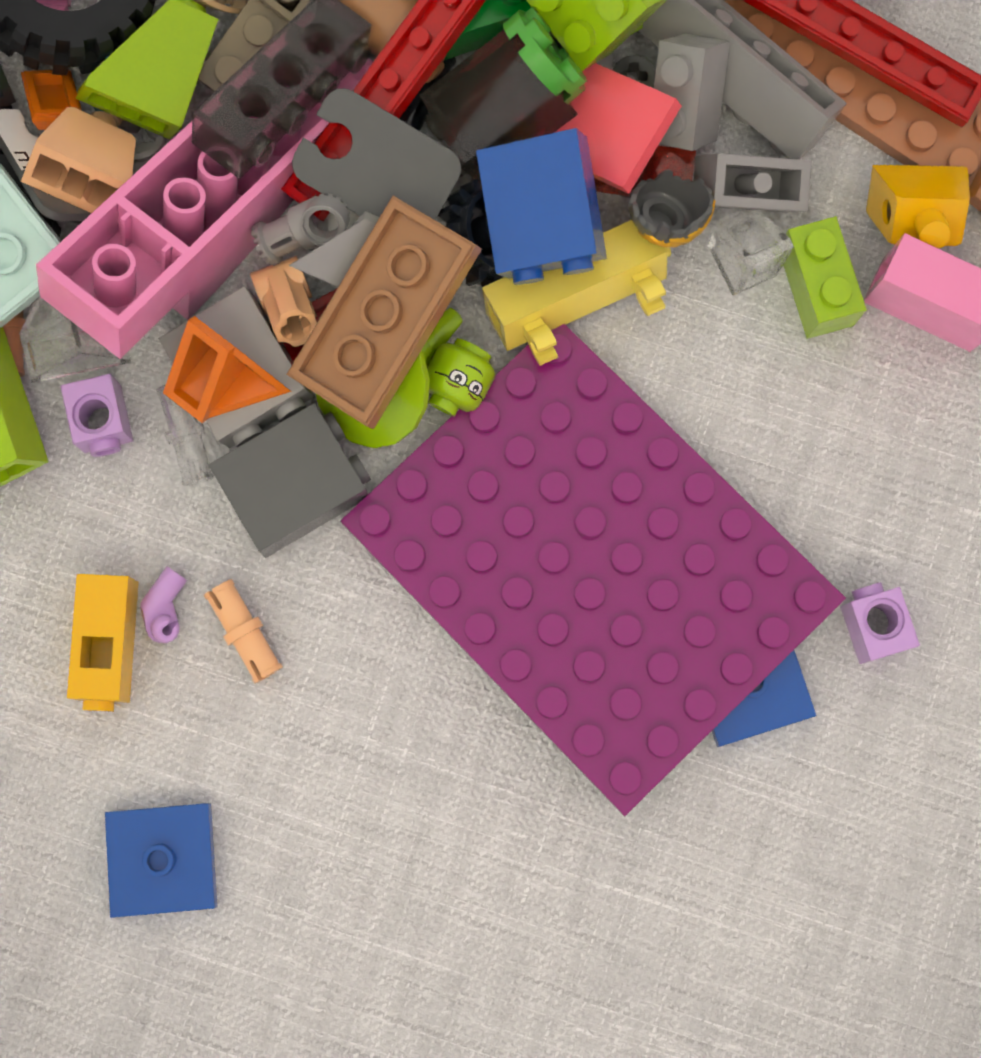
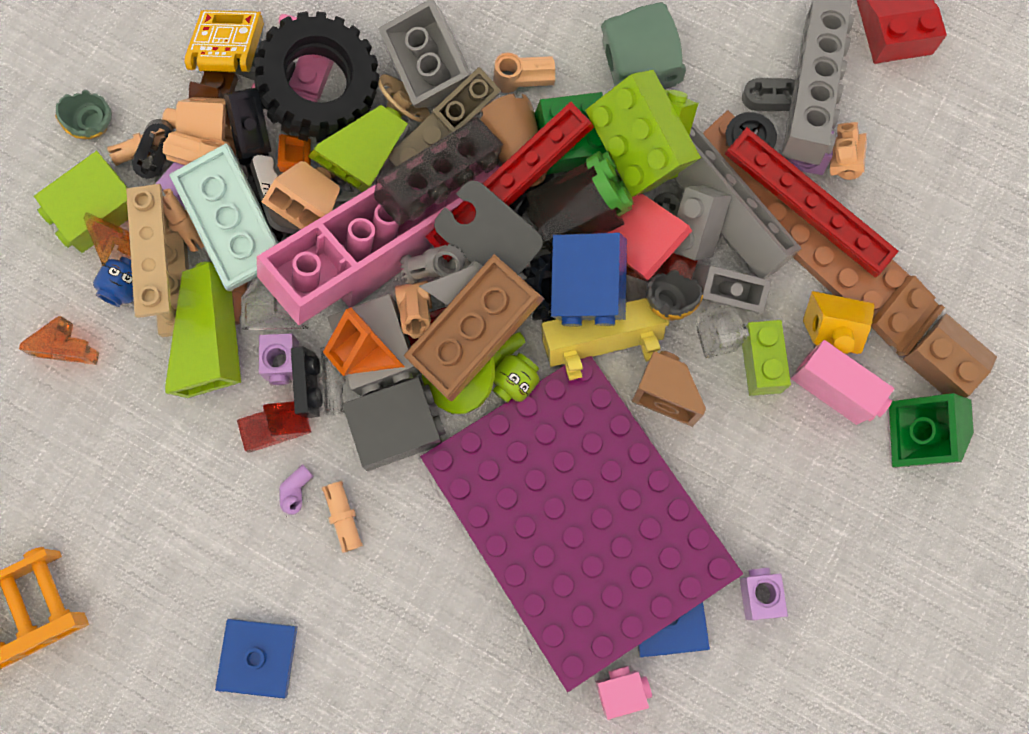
camera: 15 degrees right, 5 degrees down
(102, 641) = (250, 505): yellow brick -> none
(111, 517) = (272, 426): none -> clear red slope
(141, 426) = (305, 384): none -> black plate
(691, 350) = (670, 389): none -> medium nougat slope
(704, 801) = (623, 692): none -> bright pink brick

